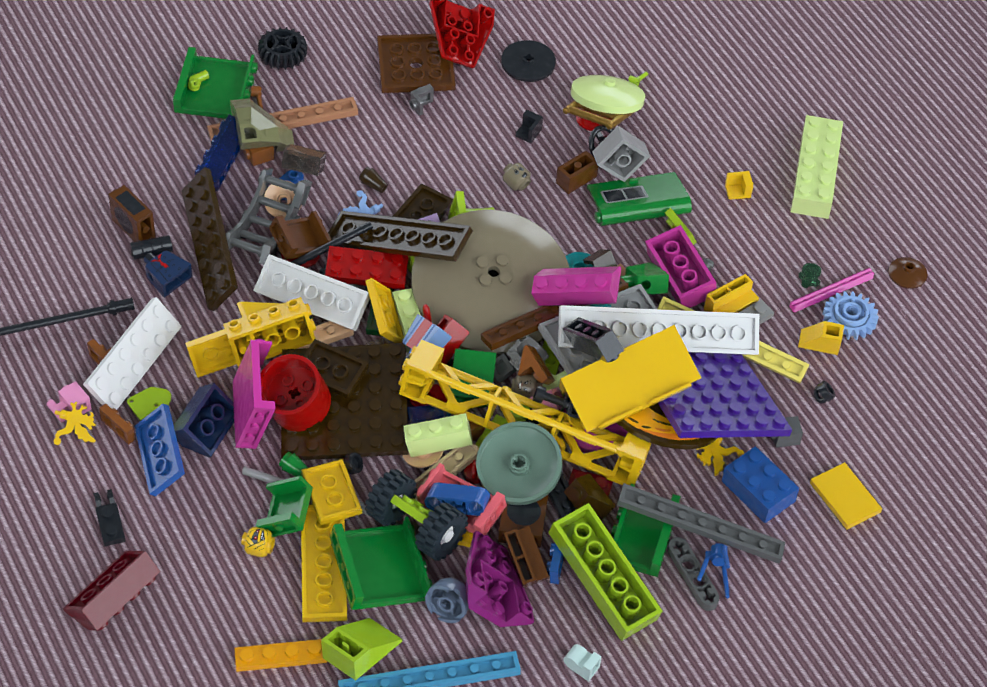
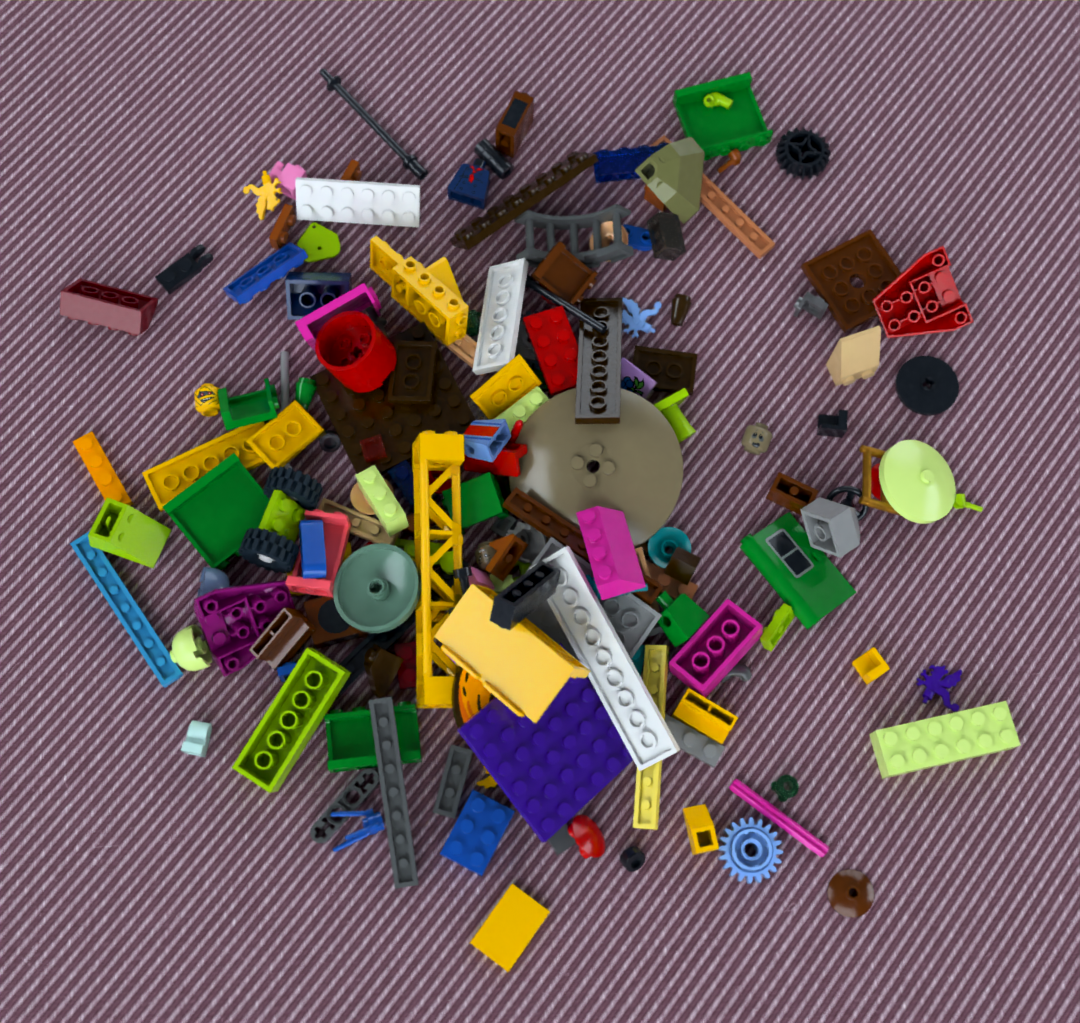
camera: 65 degrees right, 20 degrees up
(384, 425) = (373, 448): none -> clear red tile
(486, 86) = (855, 357): none -> tan slope
(499, 632) = (190, 649): none -> yellowish green cylinder
(707, 487) = (453, 781): none -> dark grey plate
(771, 155) = (936, 685): none -> dark purple piece
(803, 409) = (587, 836): none -> red dish

